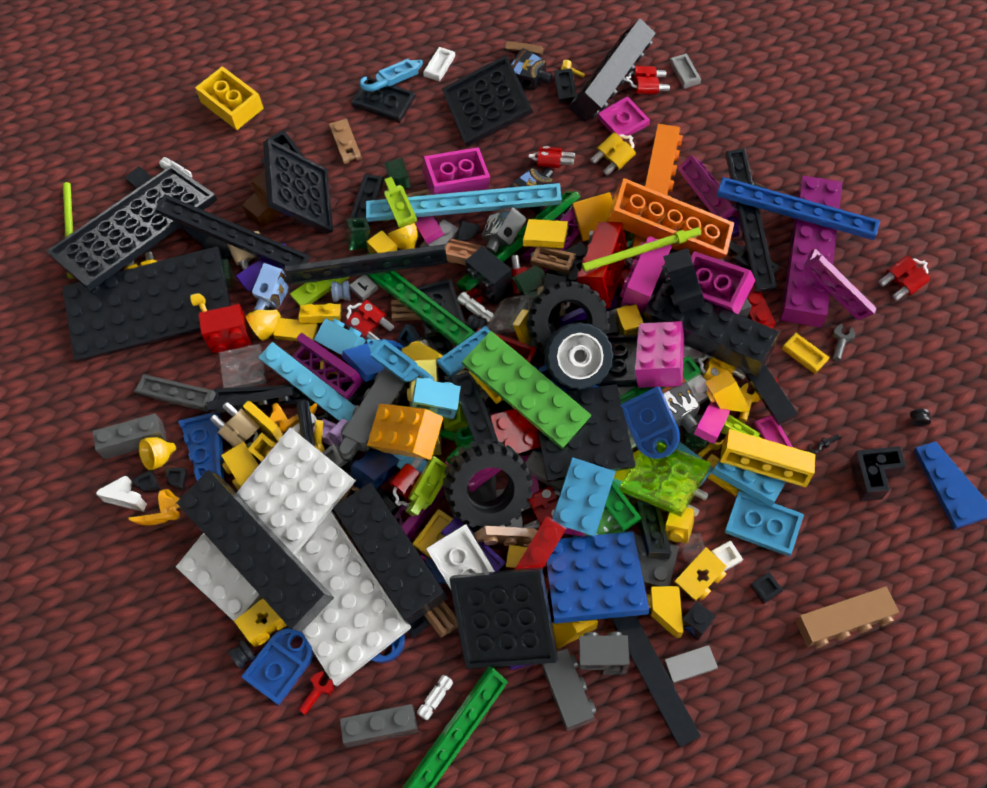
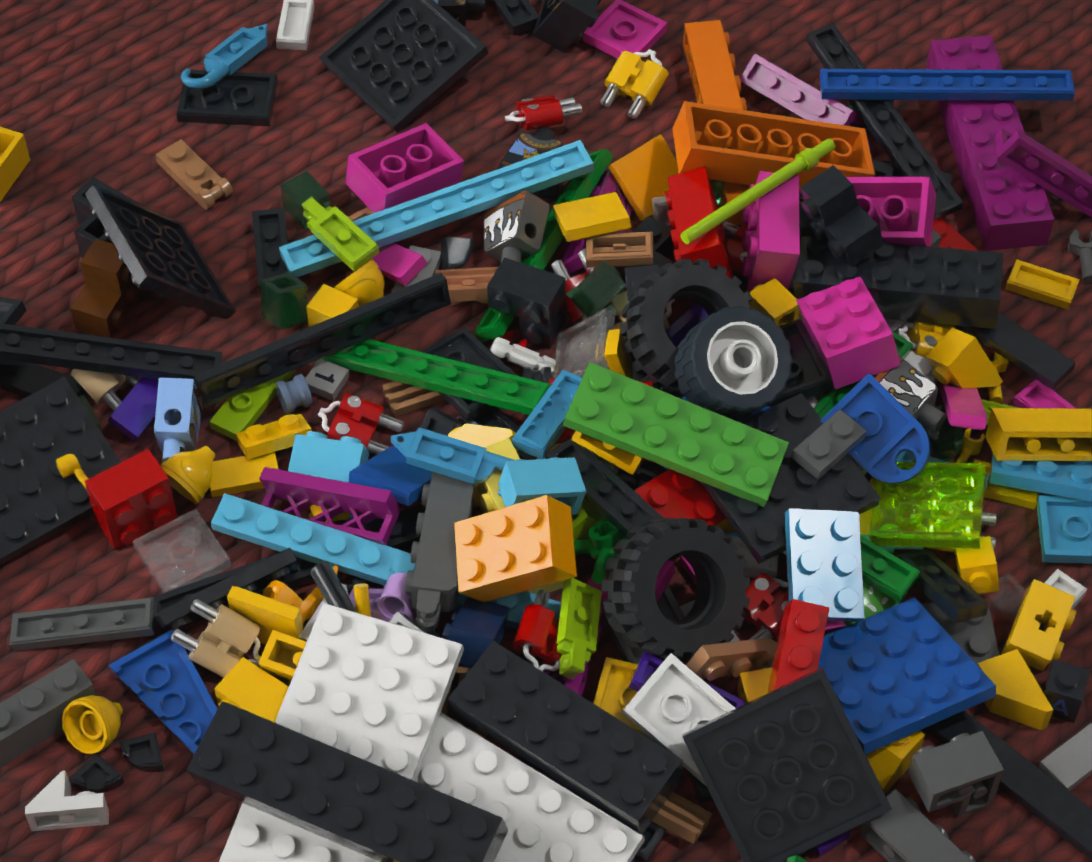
camera: 25 degrees left, 10 degrees down
(167, 506) = (160, 791): light orange hair -> none
(616, 422) = (828, 444): none -> dark grey plate

